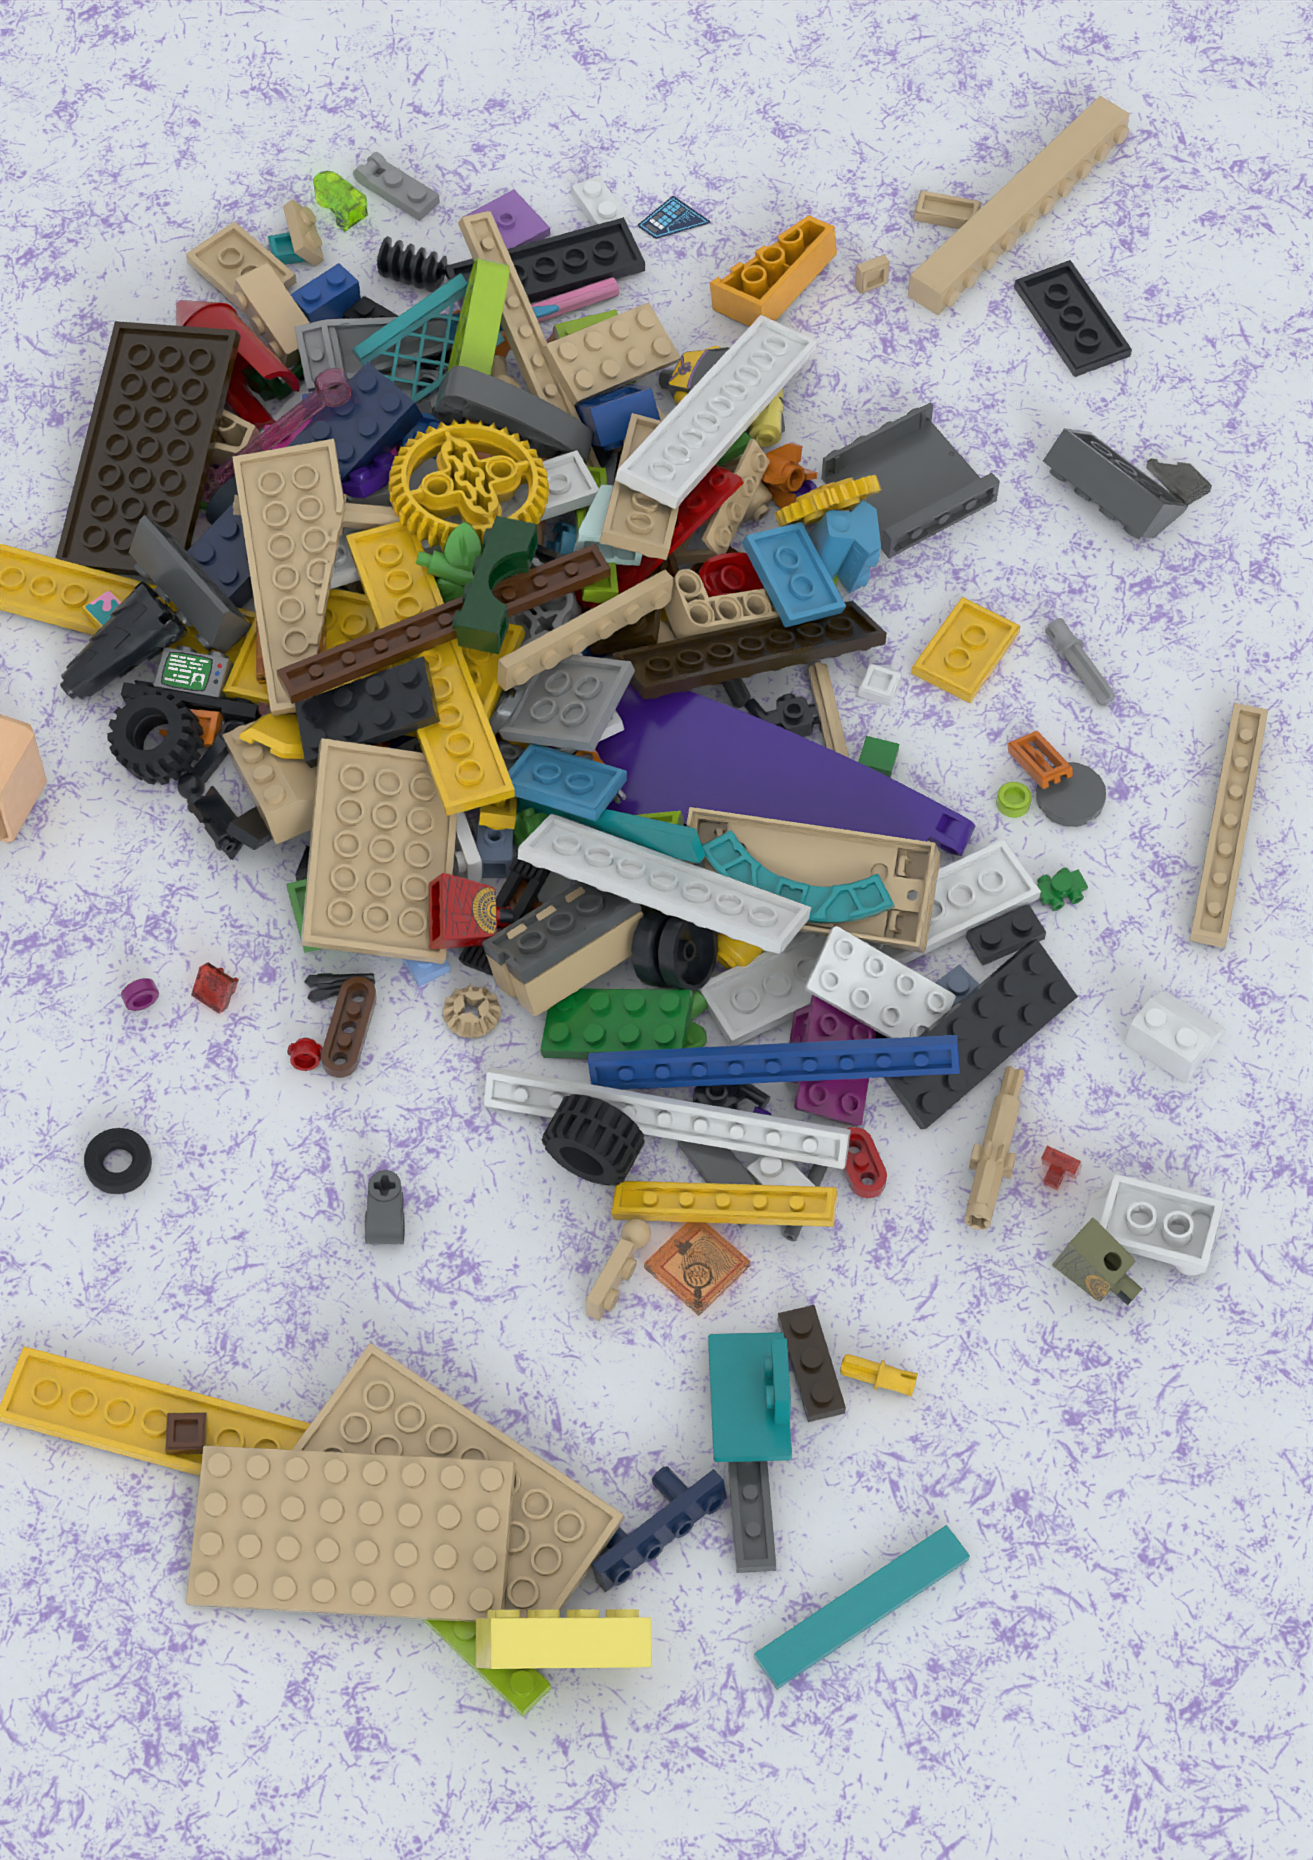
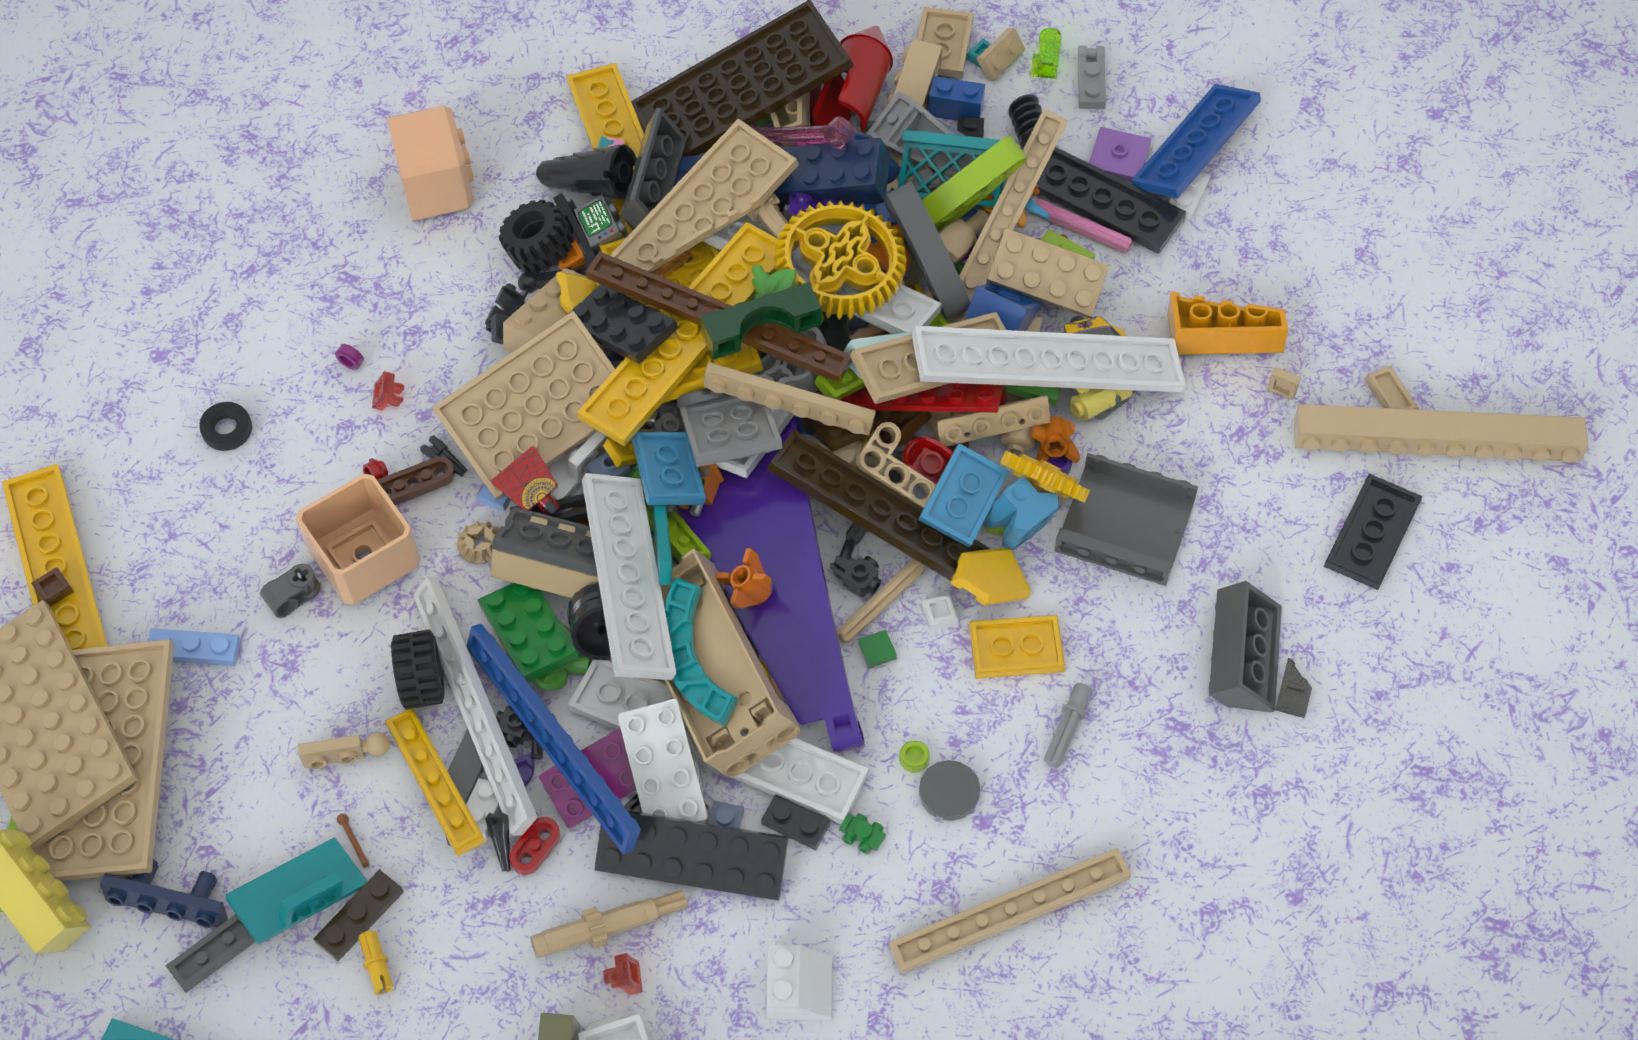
camera: 55 degrees right, 0 degrees up
(383, 1328) = (200, 646): none -> light blue plate
(394, 1077) = (355, 521): none -> light nougat plate
(555, 156) = (1196, 140): none -> blue plate
(672, 218) = (1221, 241): dark blue sticker -> none
(691, 1317) = (342, 819): none -> dark orange hinge
(697, 1265) = (384, 798): clear orange tile -> none
(747, 788) = (748, 581): none -> orange brick
(832, 1178) = (499, 833): none -> black piece
(886, 614) = (991, 576): none -> yellow tile
(1033, 761) = (949, 766): orange tile -> none

